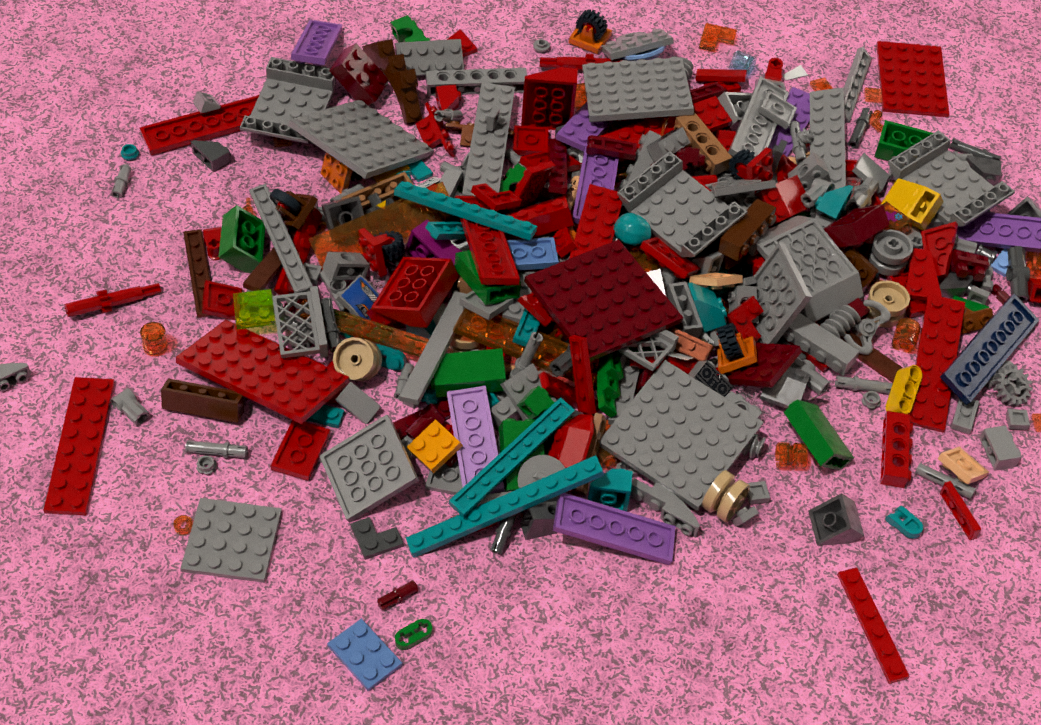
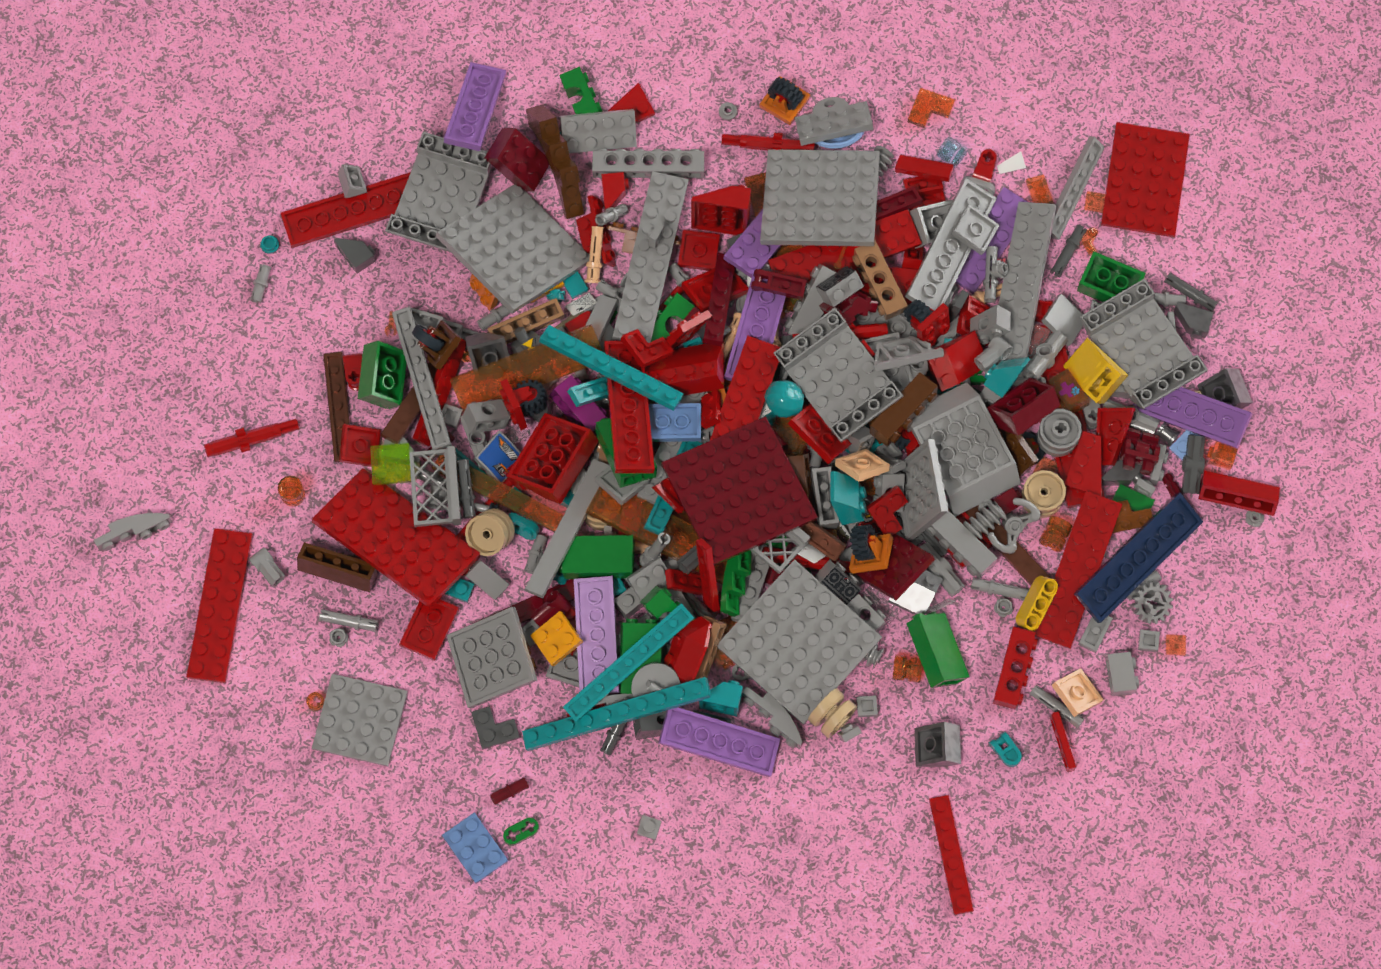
camera: 10 degrees right, 20 degrees up
(436, 151) = (594, 264): none -> light nougat pin
(551, 621) = (649, 827): none -> light grey plate

